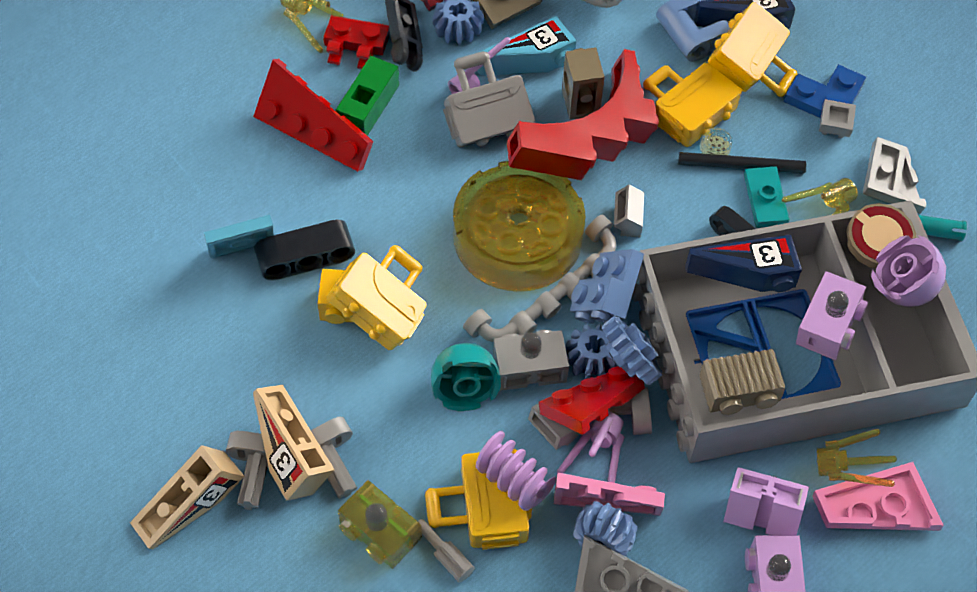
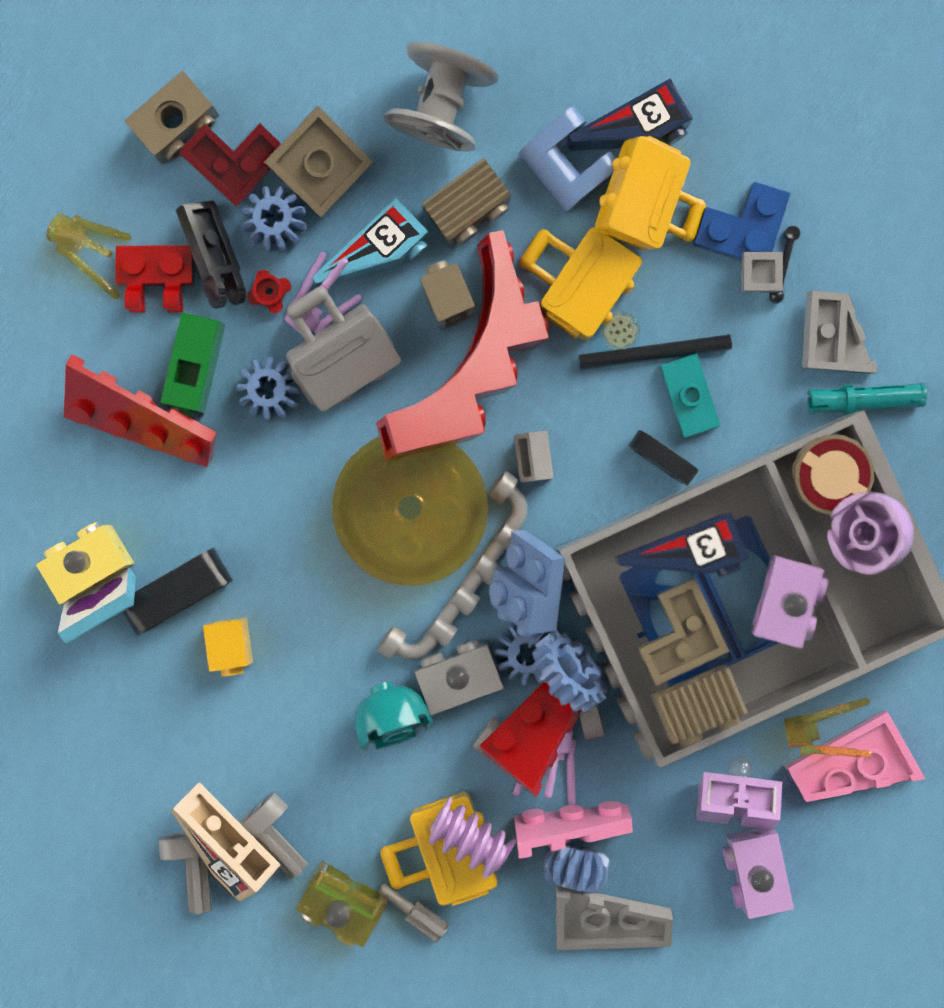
camera: 15 degrees left, 30 degrees up
(189, 494) = (136, 916): tan slope -> none
(235, 206) = (84, 563): none -> light yellow piece
(378, 299) = (274, 653): yellow piece -> none
(423, 124) = (255, 386): none -> medium blue gear
(439, 65) = (258, 293): none -> red plate
(611, 33) = (467, 203): none -> dark tan brick
(744, 327) = (693, 637): none -> dark tan plate
(835, 194) = (772, 382): clear yellow plant -> none
(864, 108) = (791, 234): none -> black hinge

